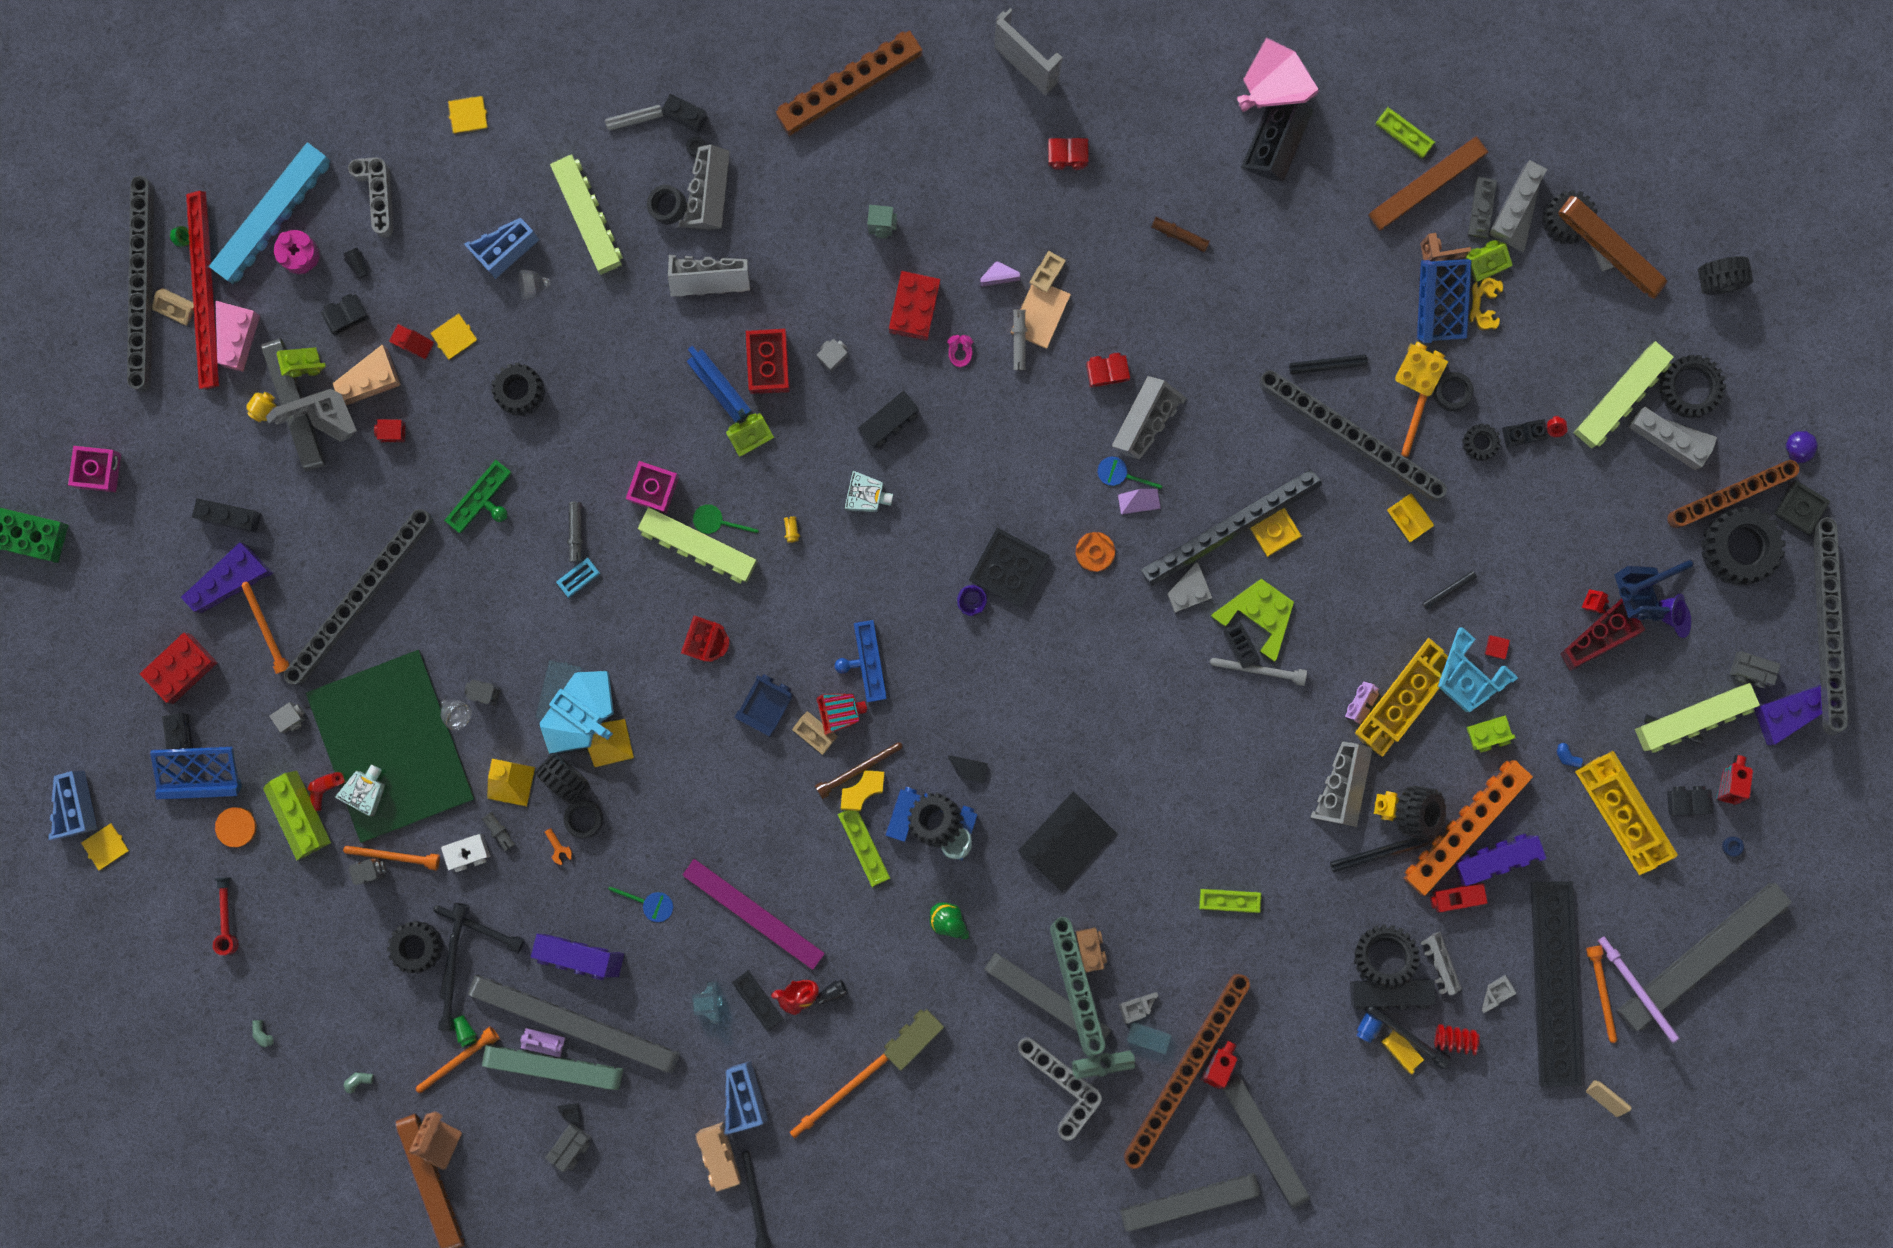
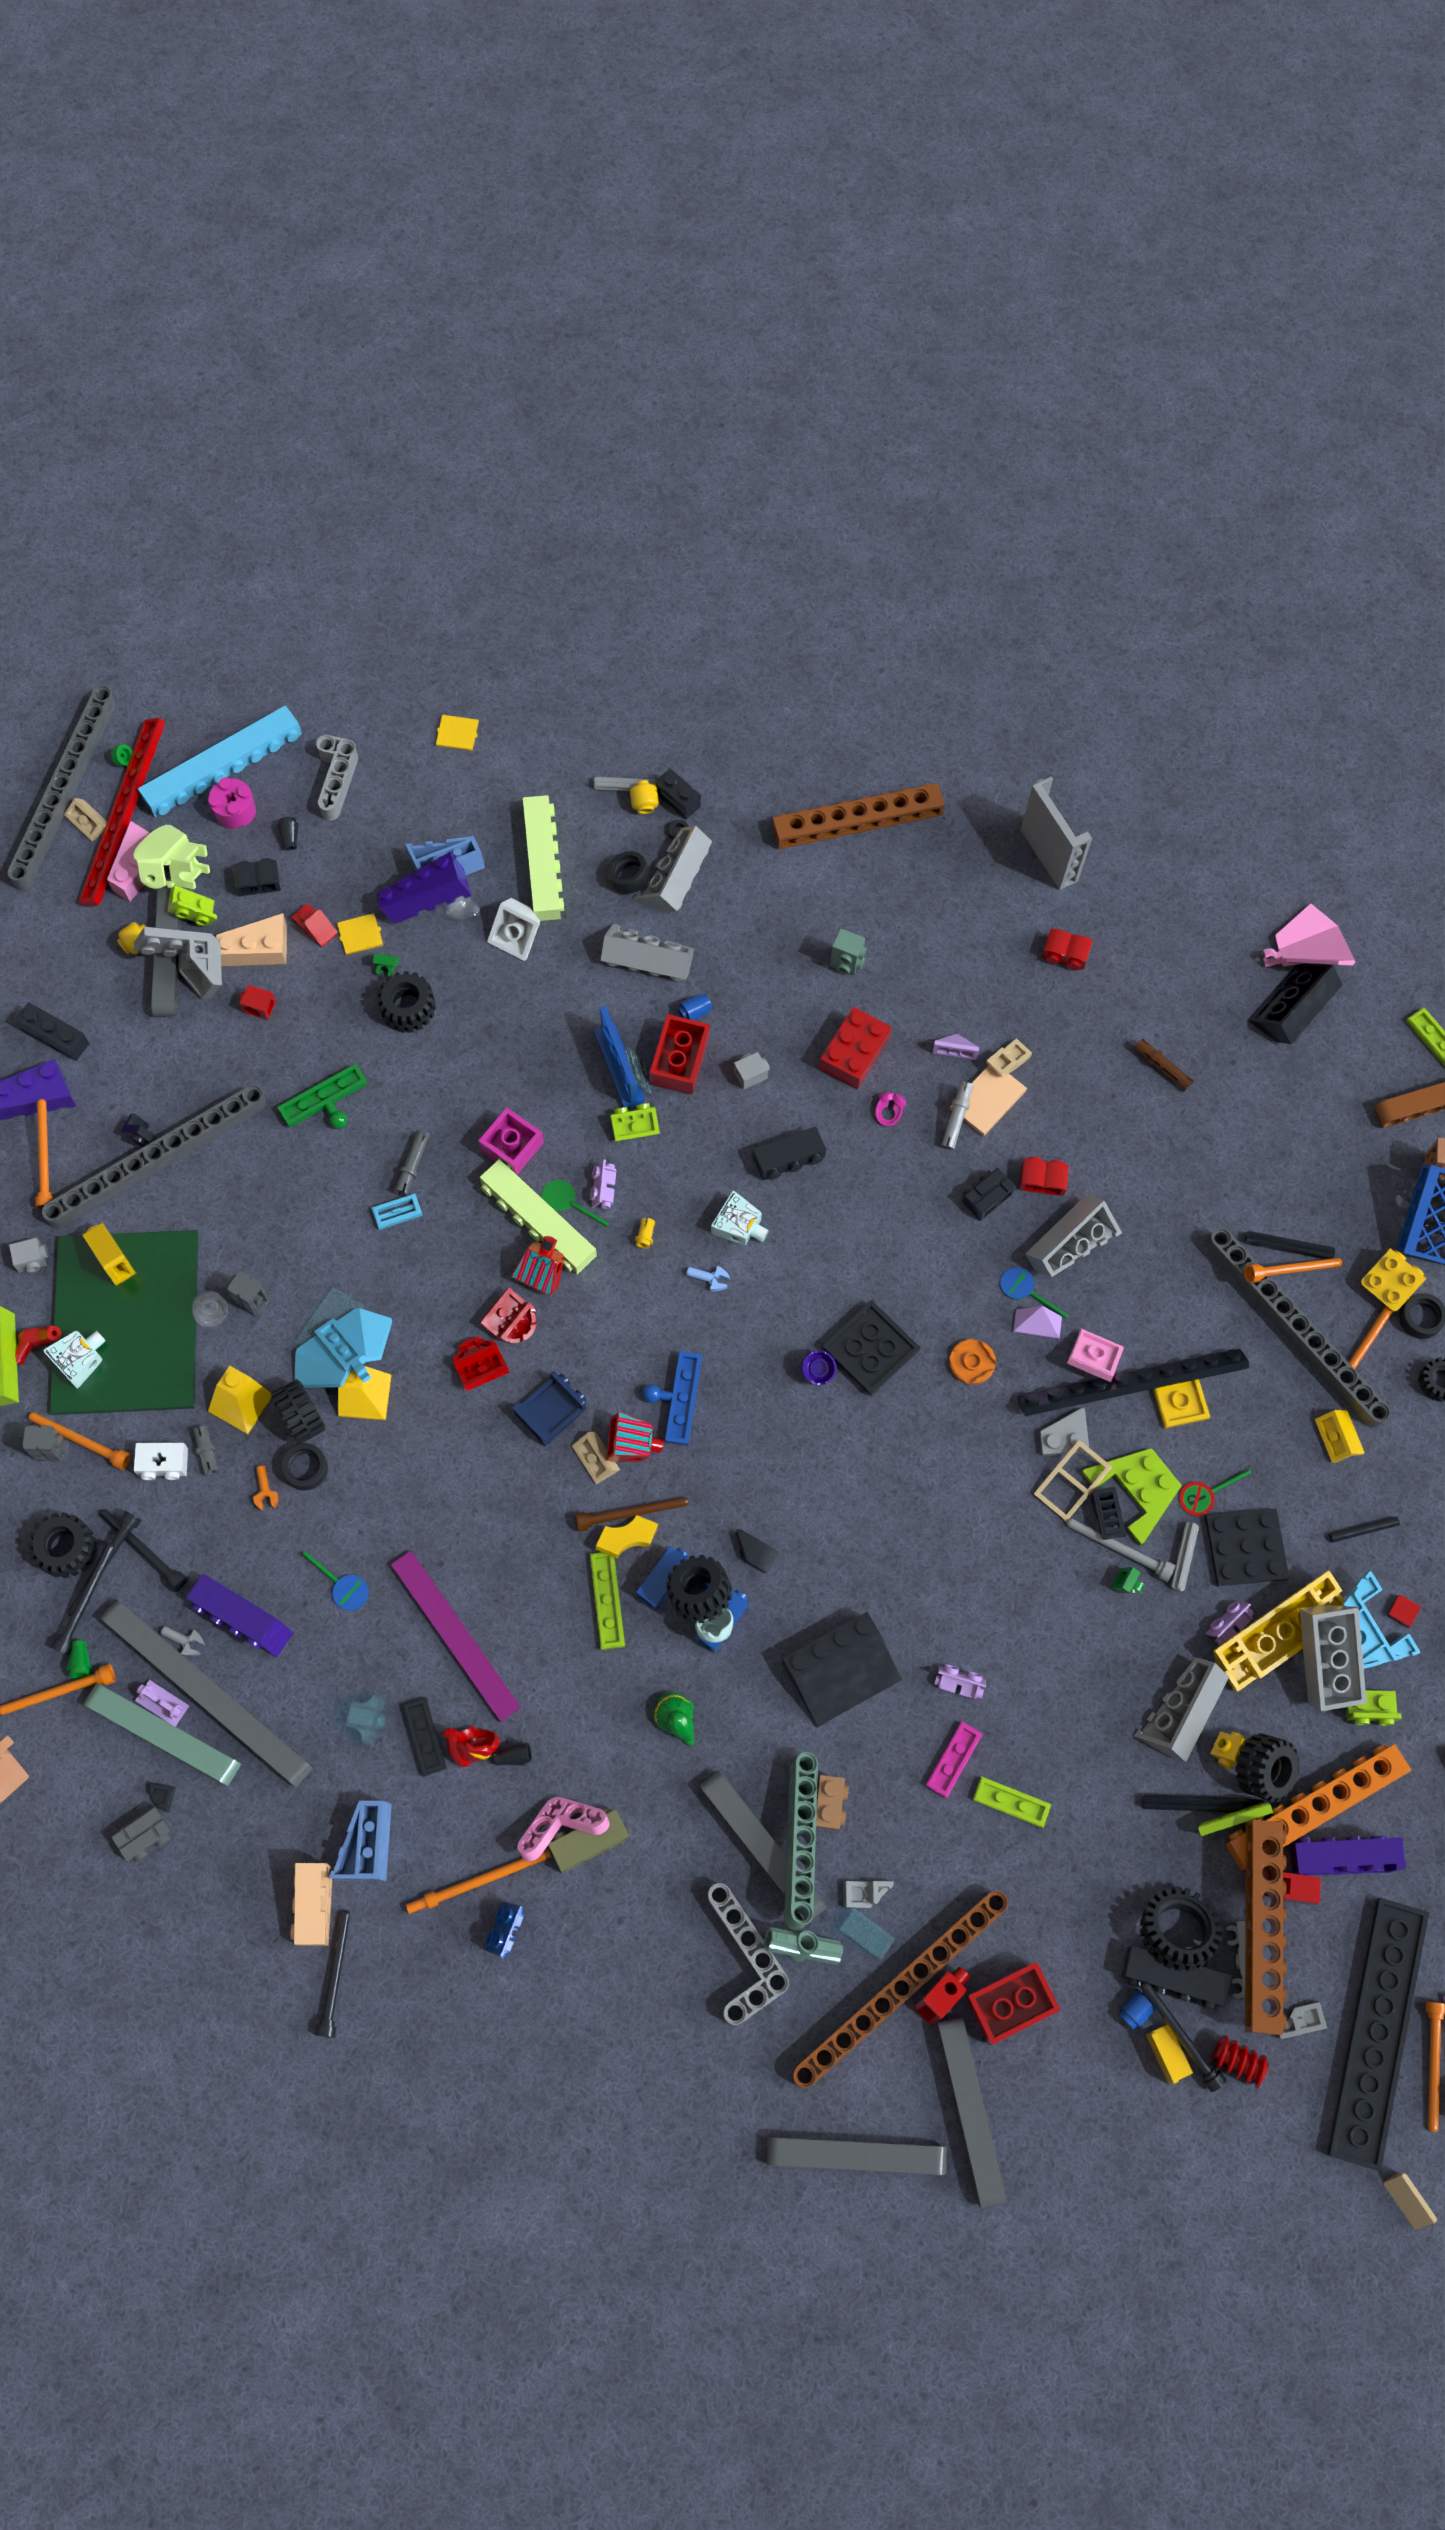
camera: 15 degrees right, 15 degrees down
(260, 319) = (172, 848): none -> yellowish green piece
(332, 579) = (136, 1130): none -> black bracket
(354, 696) = (108, 1253): none -> yellow slope
(486, 355) = (387, 961): none -> green tile
(498, 282) = (424, 889): none -> dark purple wedge
(540, 988) = (183, 1640): none -> light grey bar
(586, 289) = (514, 928): none -> white slope
(655, 127) = (644, 797): none -> yellow head
(693, 686) = (479, 1362): none -> red slope
(716, 589) = (541, 1266): none -> red torso
(737, 388) = (638, 1069): none -> clear light blue piece
(739, 490) = (602, 1177): none -> lavender hinge
(766, 313) = (695, 1007): none -> blue brick
(856, 549) = (710, 1277): none -> light blue bar
(871, 1134) = (507, 1918): none -> blue hinge
(886, 1029) = (556, 1813): none -> bright pink beam
(1065, 401) = (988, 1193): none -> black brick
(1172, 818) = (970, 1682): none -> lavender hinge
(1175, 882) = (953, 1760): none -> dark pink tile
(1191, 621) = (1086, 1491): none -> tan window
(1194, 514) = (1095, 1355): none -> bright pink tile
(1271, 696) = (1127, 1581): none -> green tile
(1274, 1054) = (1012, 2003): none -> red brick
(1306, 403) = (1257, 1272): none -> orange piece
(1310, 606) = (1199, 1499): none -> piece
(1312, 659) = (1184, 1556): none -> light grey axle
(1359, 635) = (1246, 1547): none -> black plate
(1405, 859) = (1234, 1818): none -> lime tile
(1449, 708) = (1333, 1656): none -> light grey slope
(1456, 989) = (1255, 1937): none -> dark orange brick

